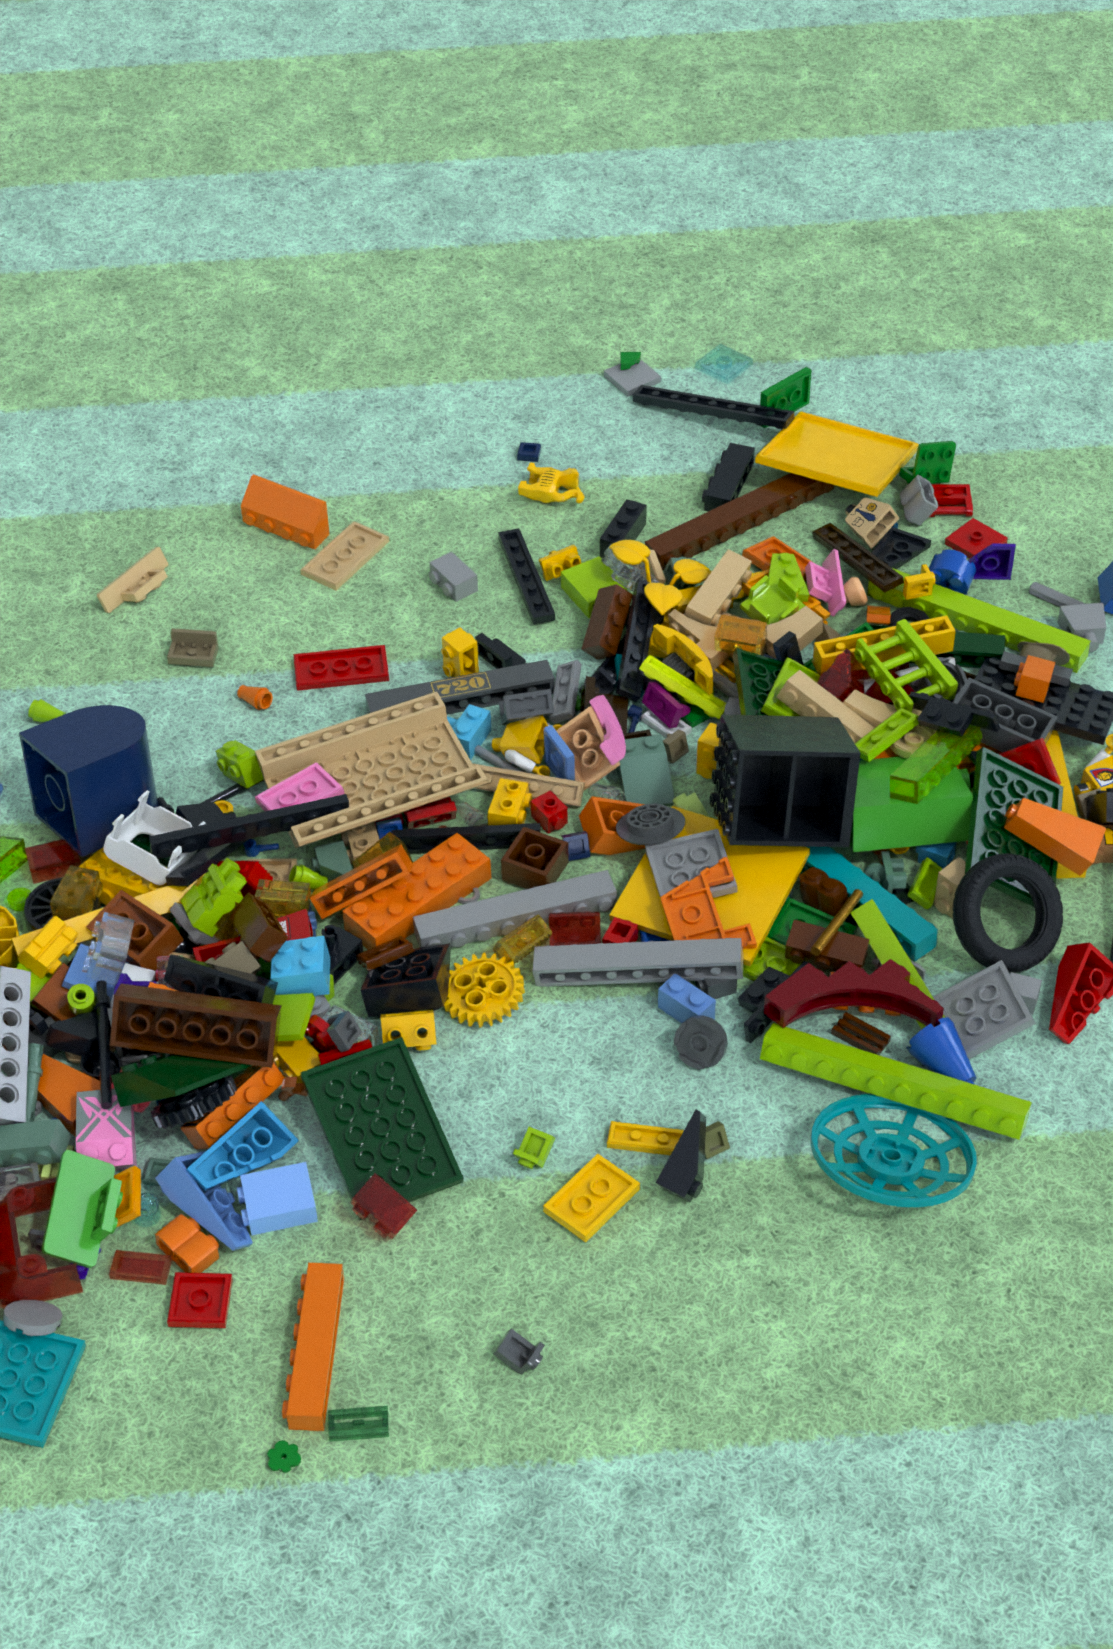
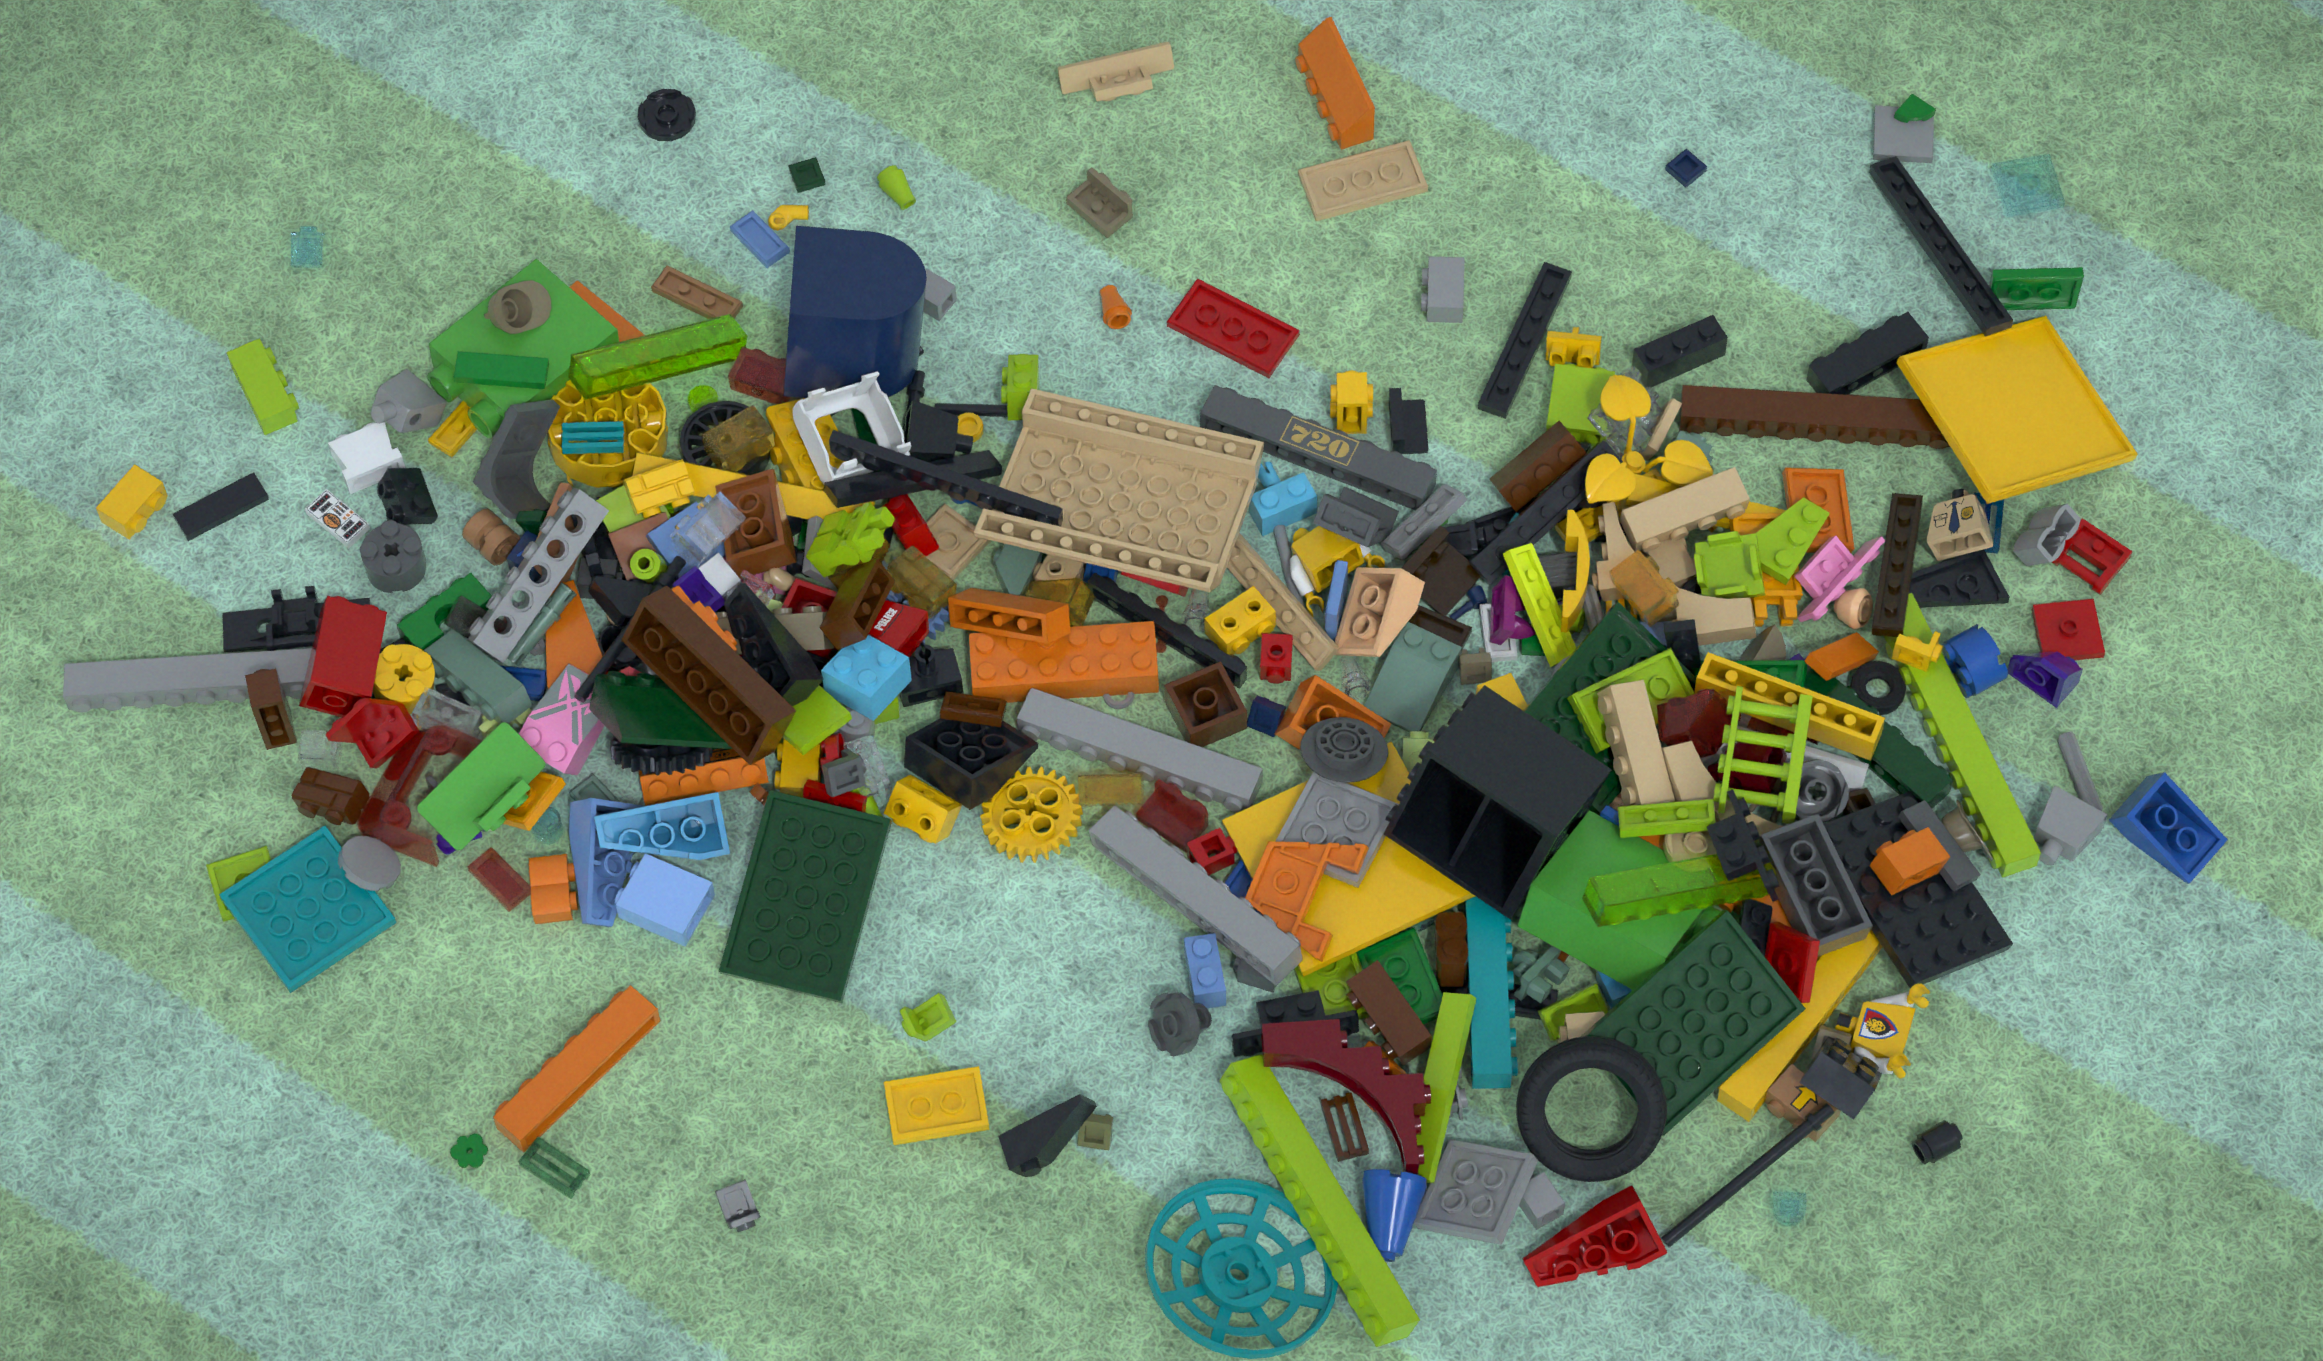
camera: 40 degrees right, 15 degrees up
(200, 1300) = (520, 950): red plate -> none
(304, 874) = (975, 569): lime cone -> none
(305, 786) = (1037, 469): bright pink tile -> none
(382, 1207) = (739, 978): clear red brick -> none
(546, 483) = (1659, 231): yellow animal -> none
(614, 742) = (1400, 621): bright pink tile -> none
(643, 1138) = (1037, 1077): yellow tile -> none
(837, 921) = (1414, 994): pearl gold bar -> none
(932, 462) = (2101, 499): green bracket -> none
(1056, 833) = (1728, 1060): orange slope -> none

